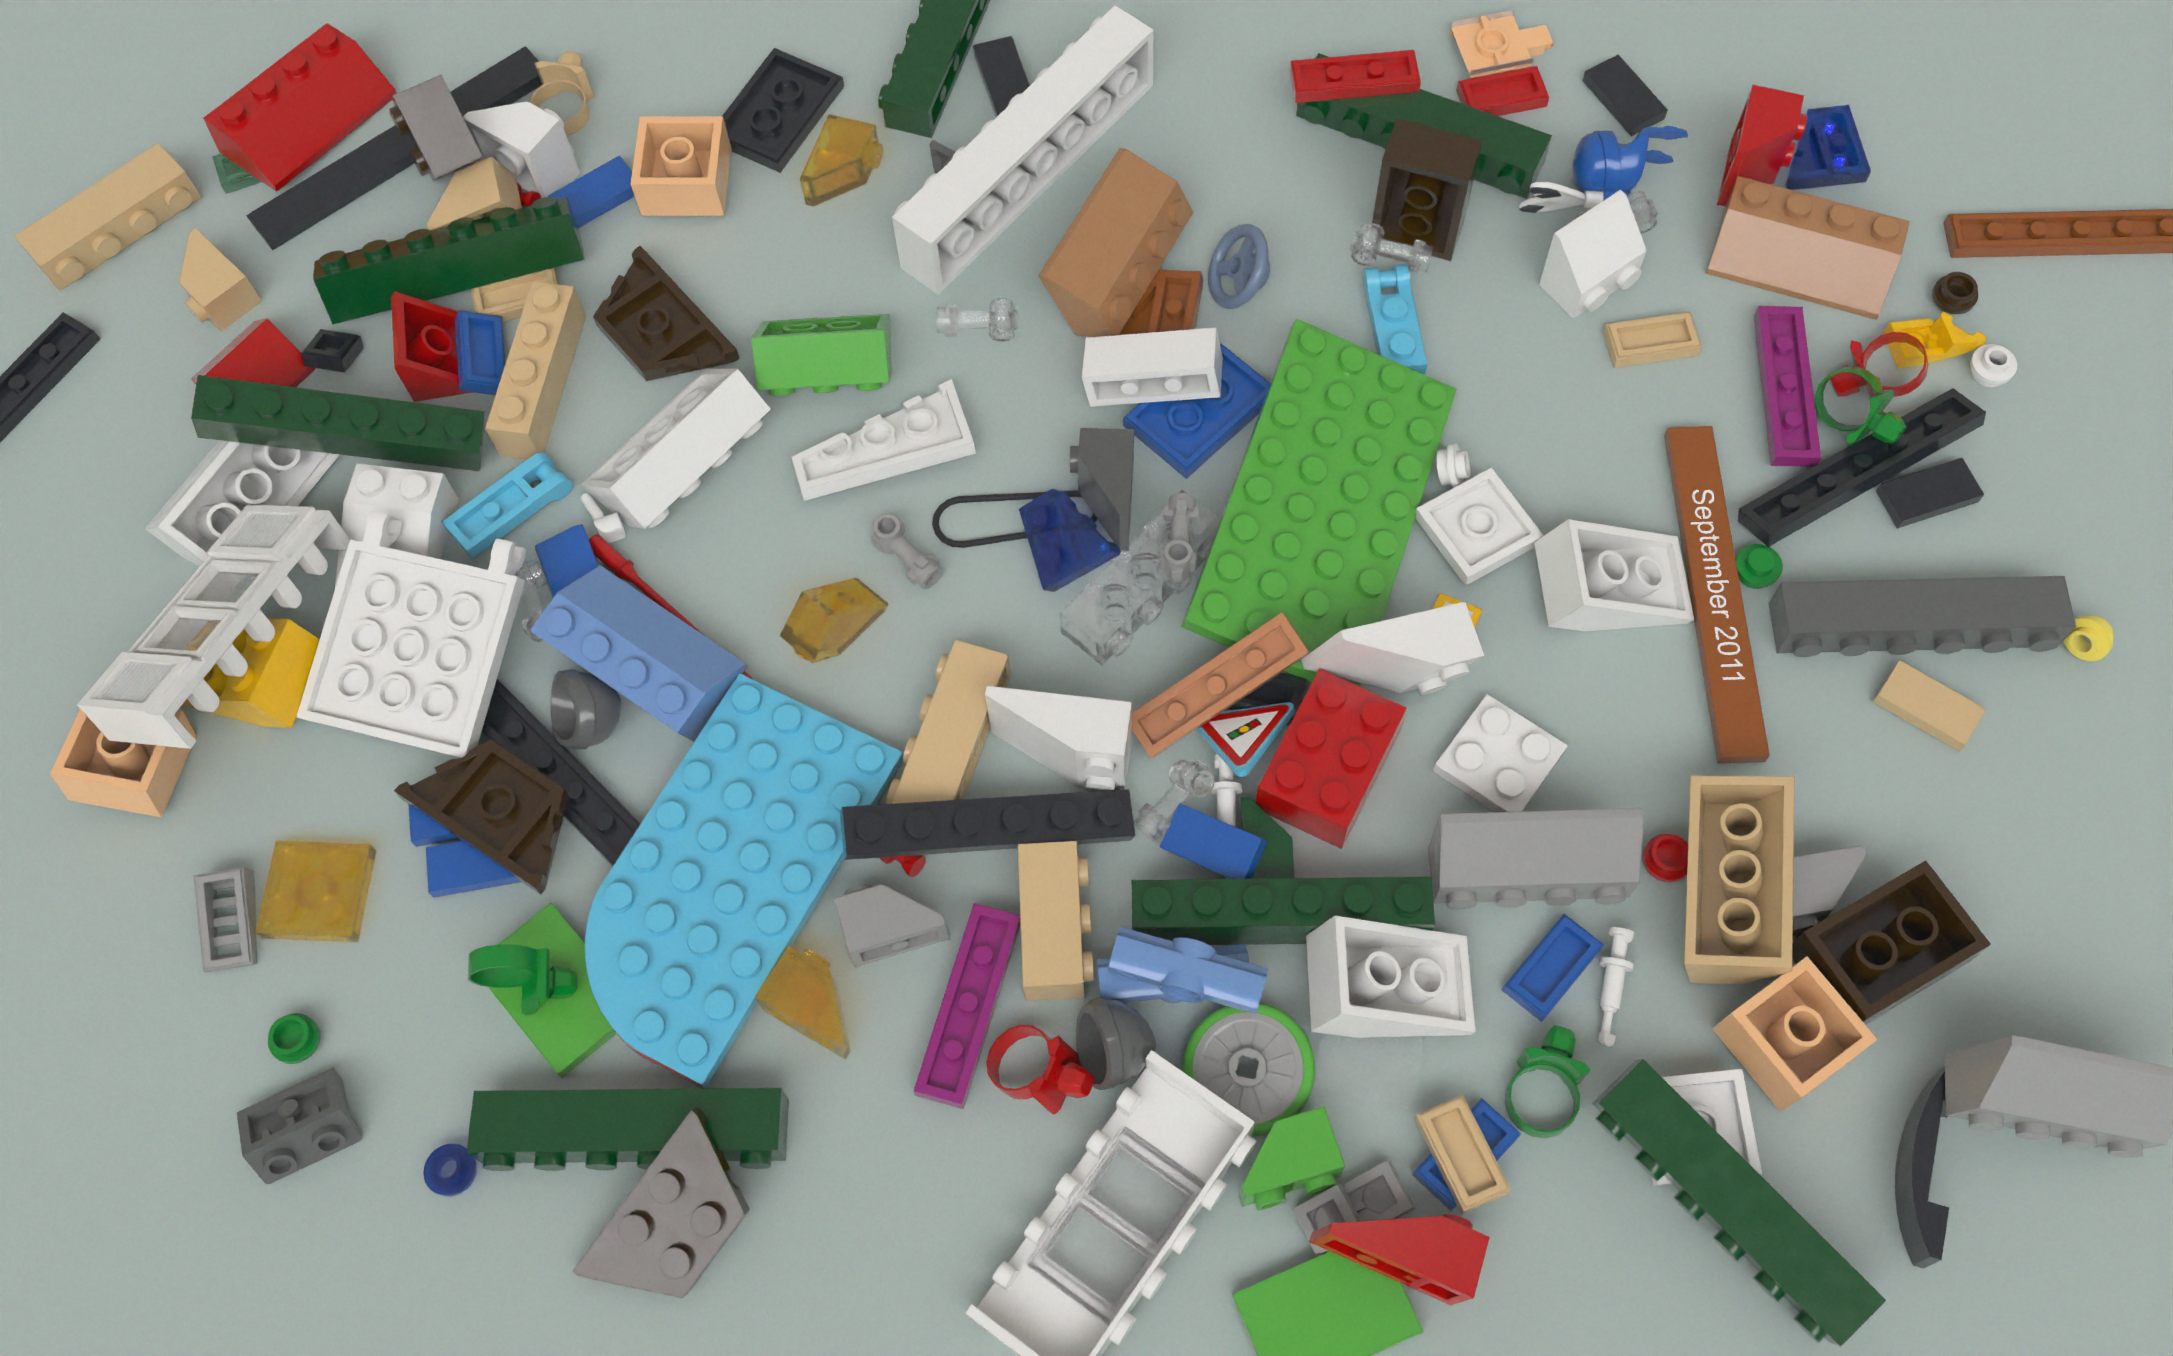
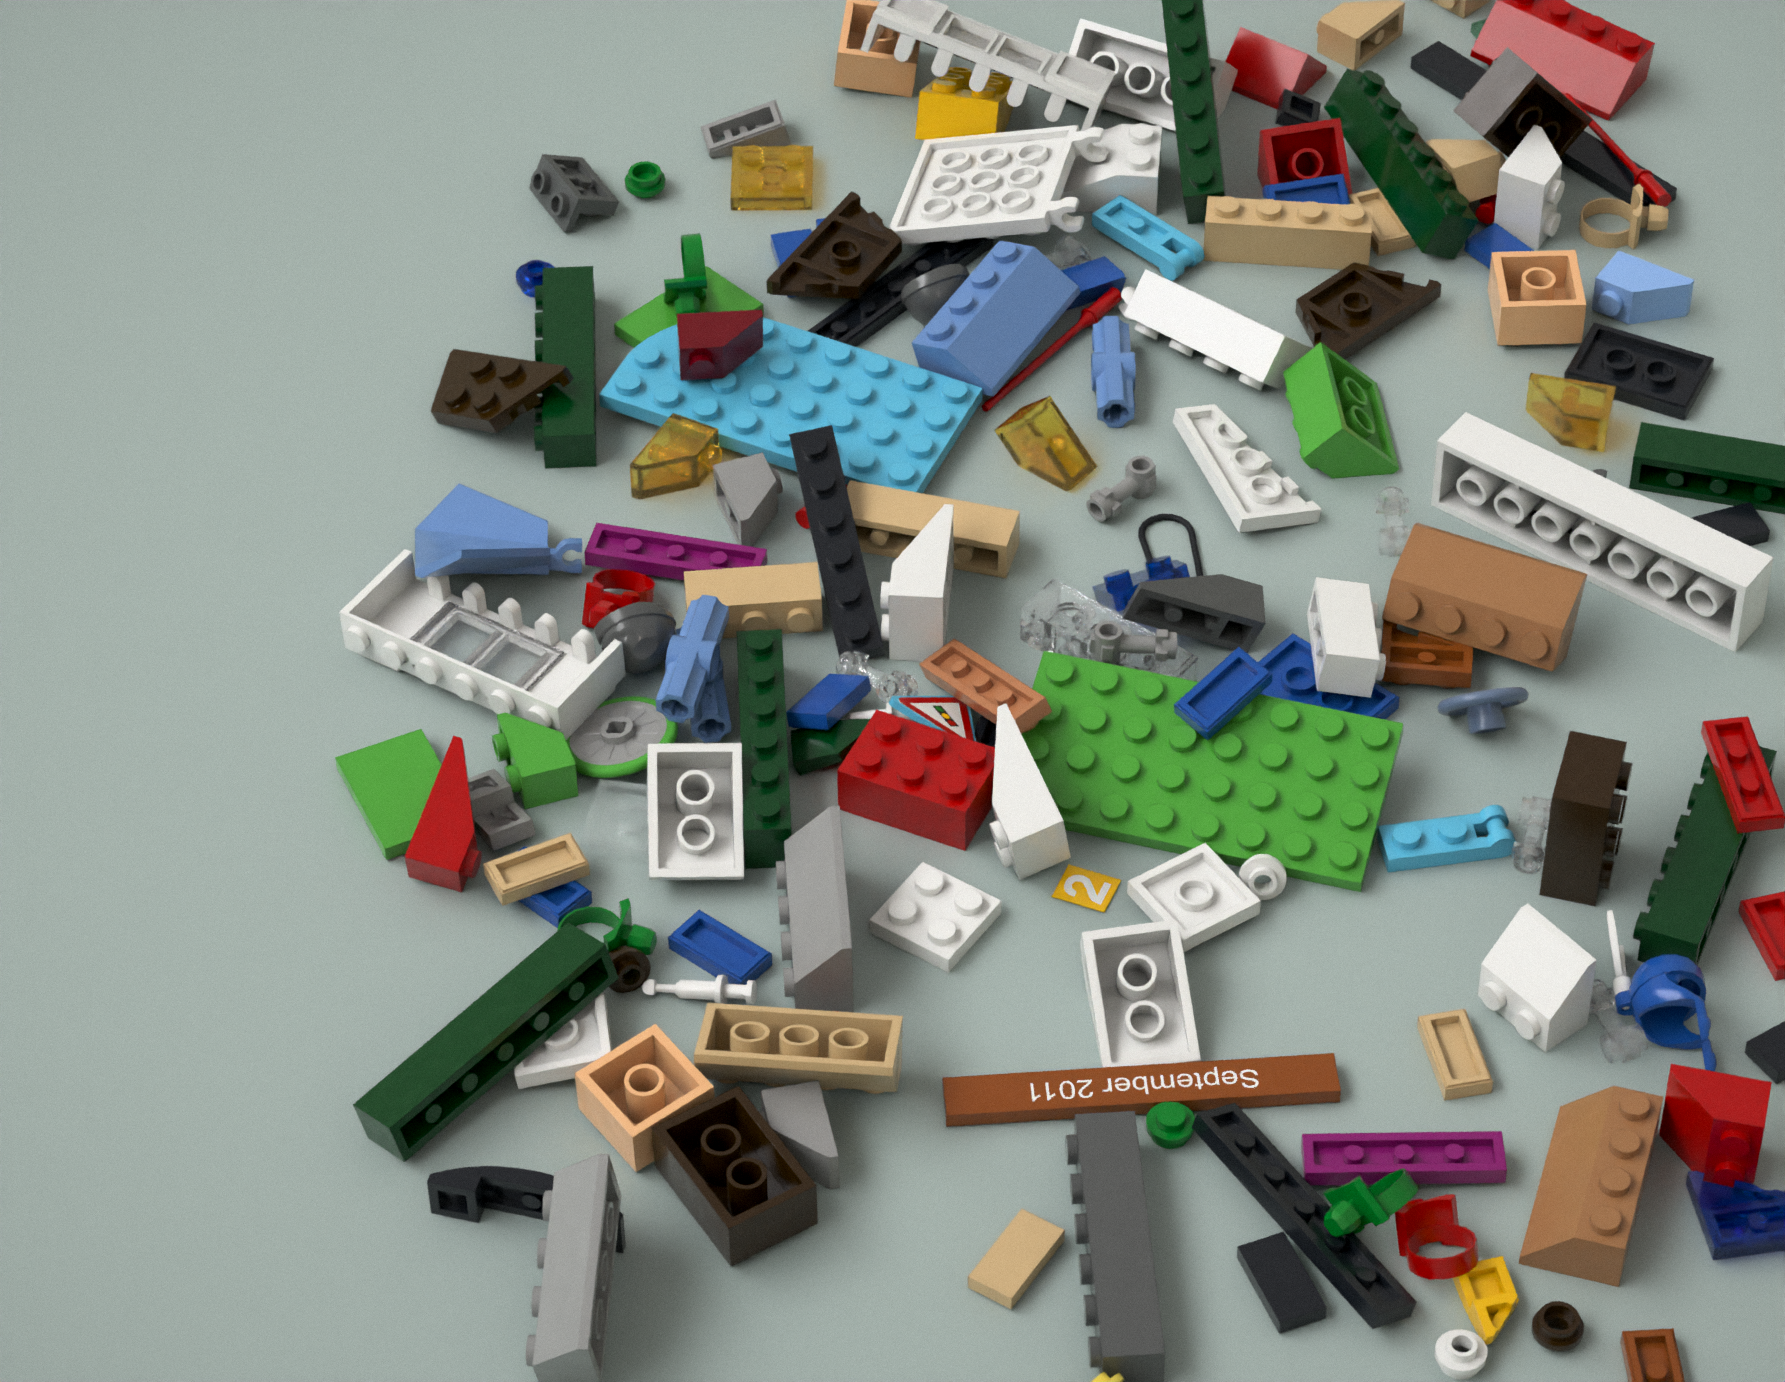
camera: 85 degrees right, 20 degrees down
(514, 65) = (1642, 177): none -> red piece
(663, 942) = (717, 342): none -> dark red slope
(671, 85) = (1640, 291): none -> light blue slope
(722, 548) = (1113, 371): none -> medium blue piece
(945, 1227) = (487, 537): none -> medium blue panel
(1265, 458) = (1223, 693): none -> blue tile
(1598, 1058) = (629, 958): none -> dark brown plate

